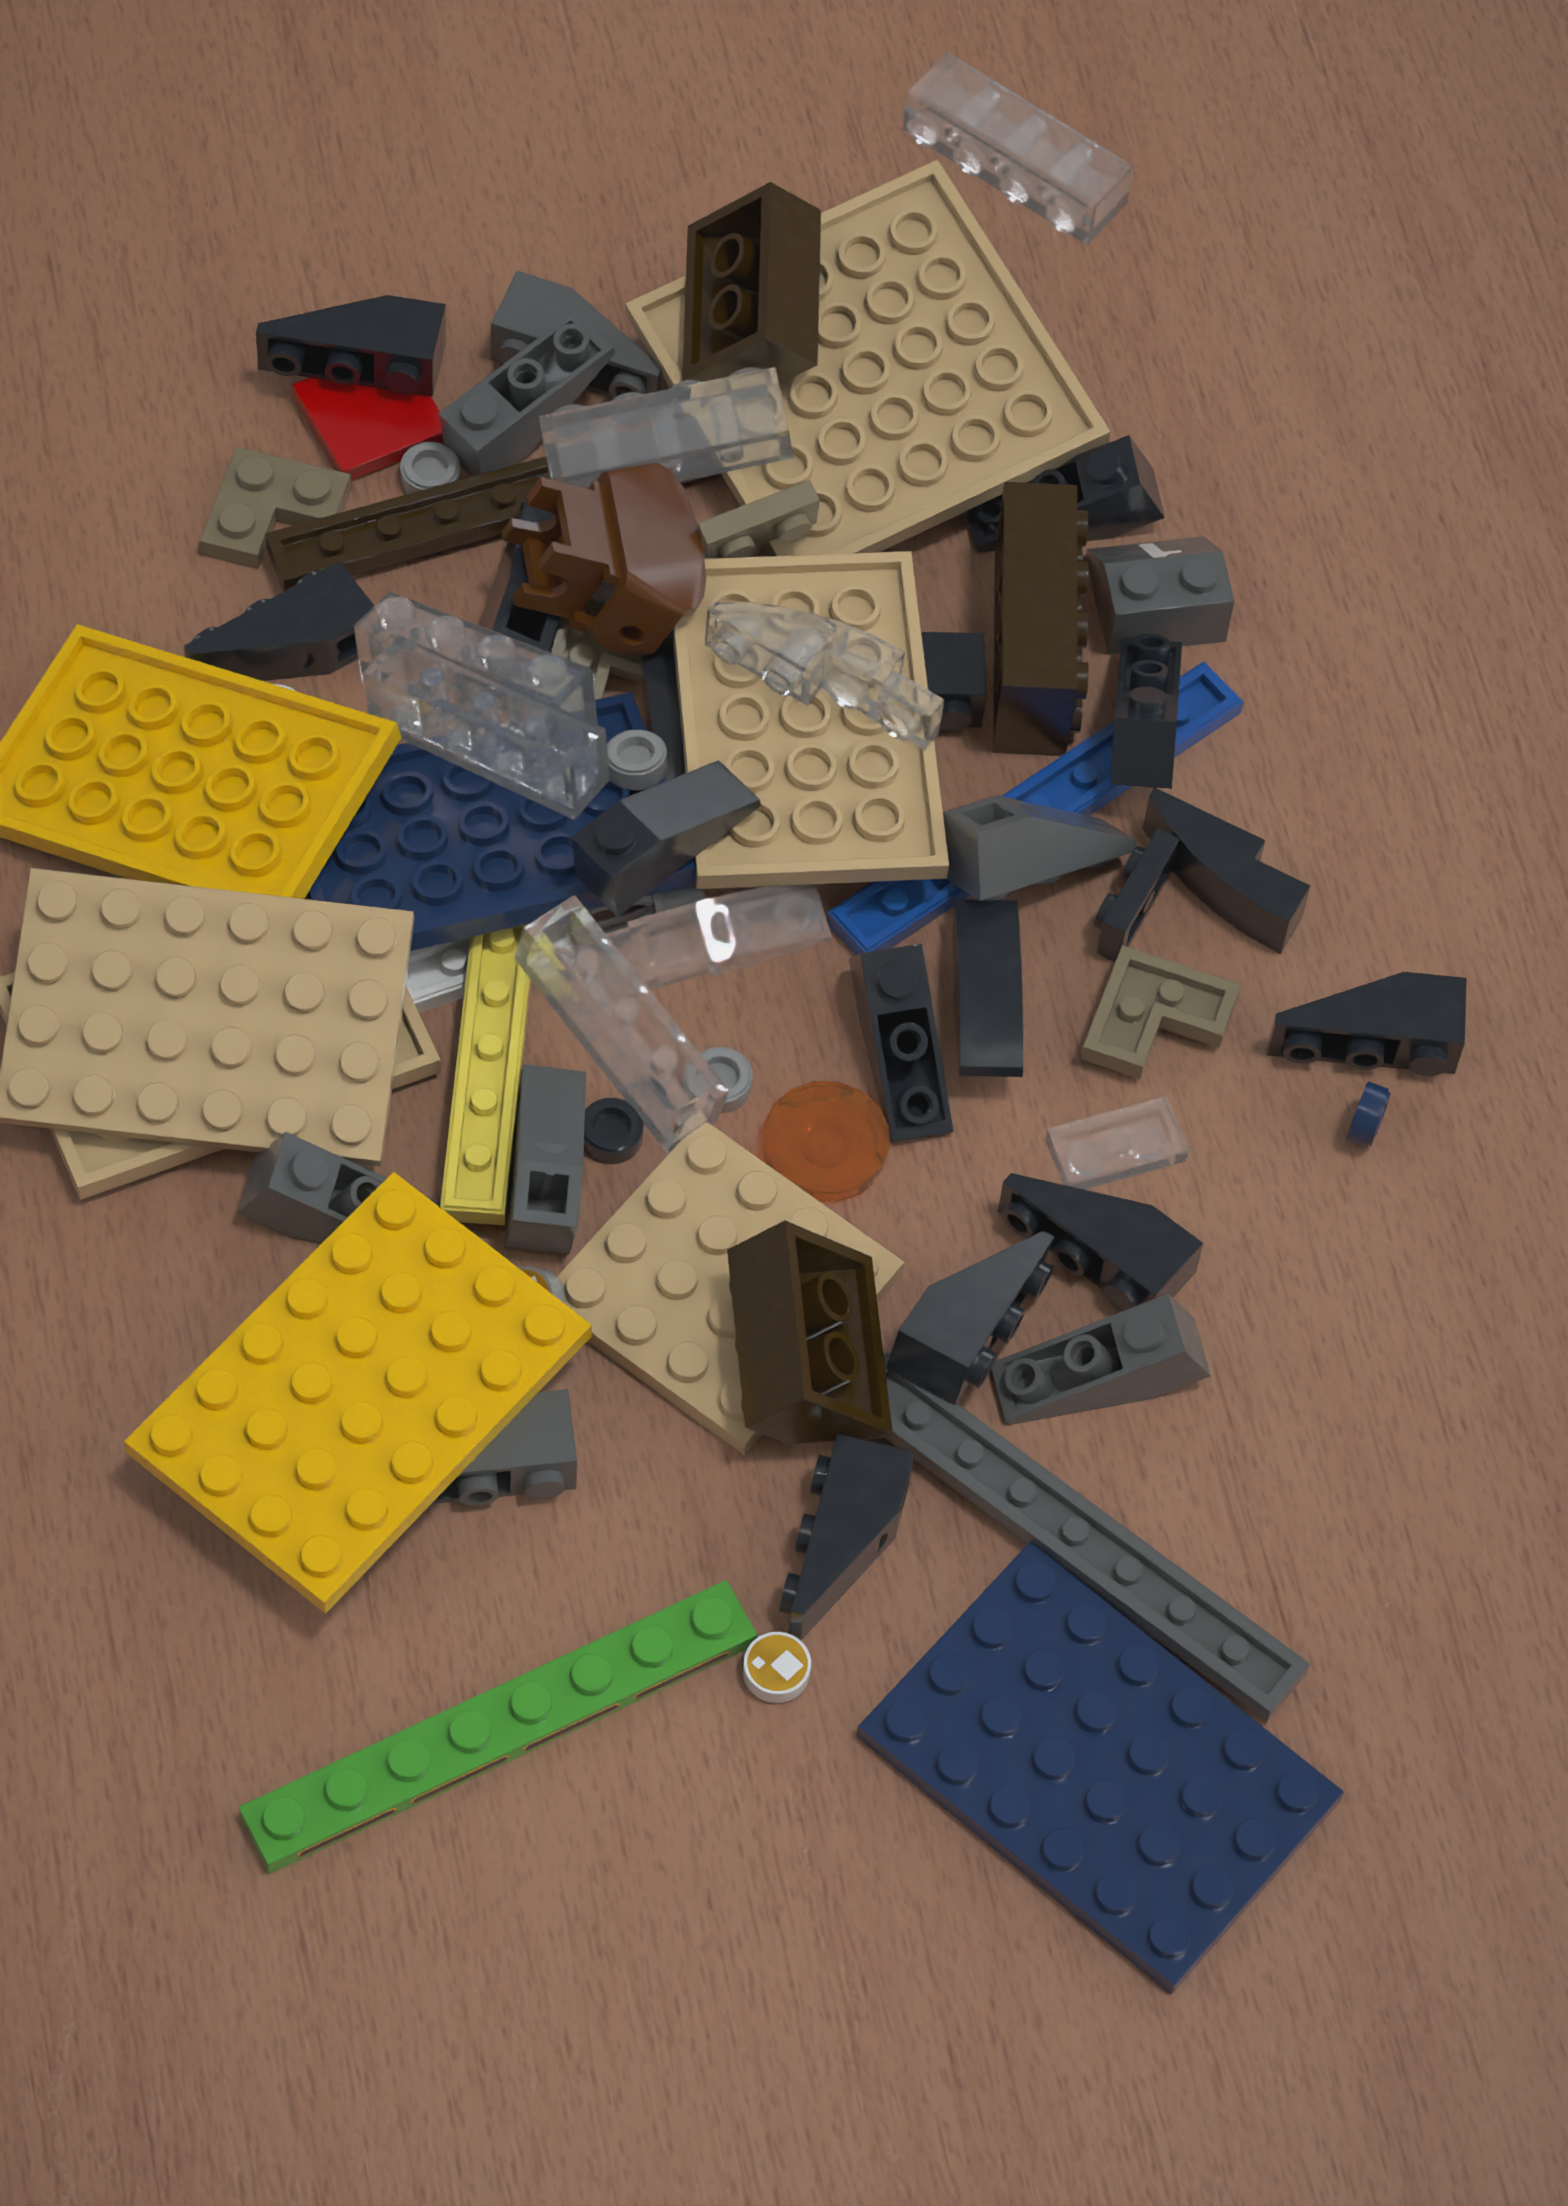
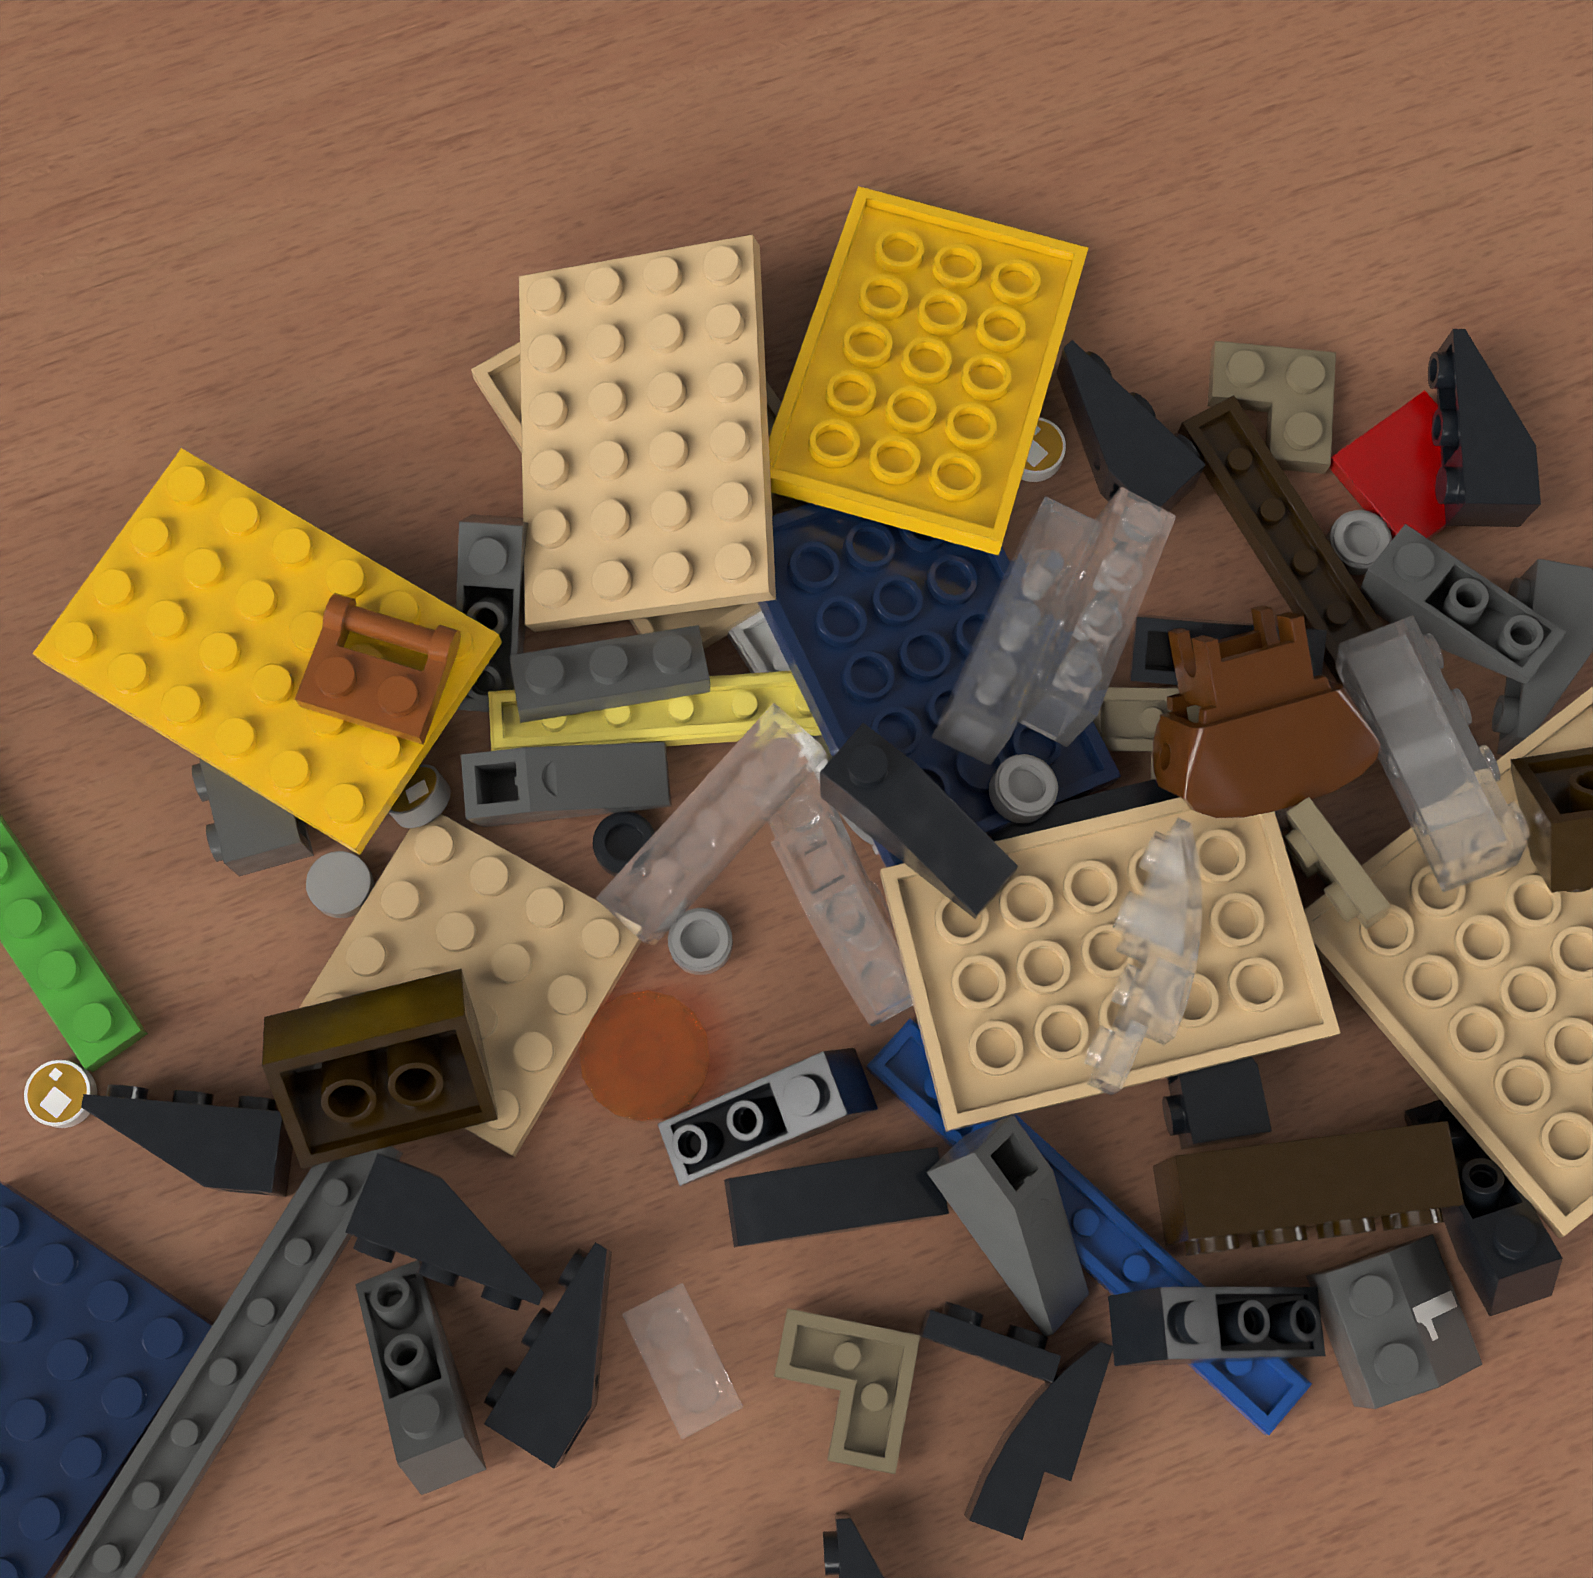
camera: 85 degrees right, 15 degrees up
(436, 1275) = (371, 688): none -> dark orange plate
(446, 1095) = (609, 673): none -> dark grey plate
(605, 1387) = (339, 884): none -> light grey tile

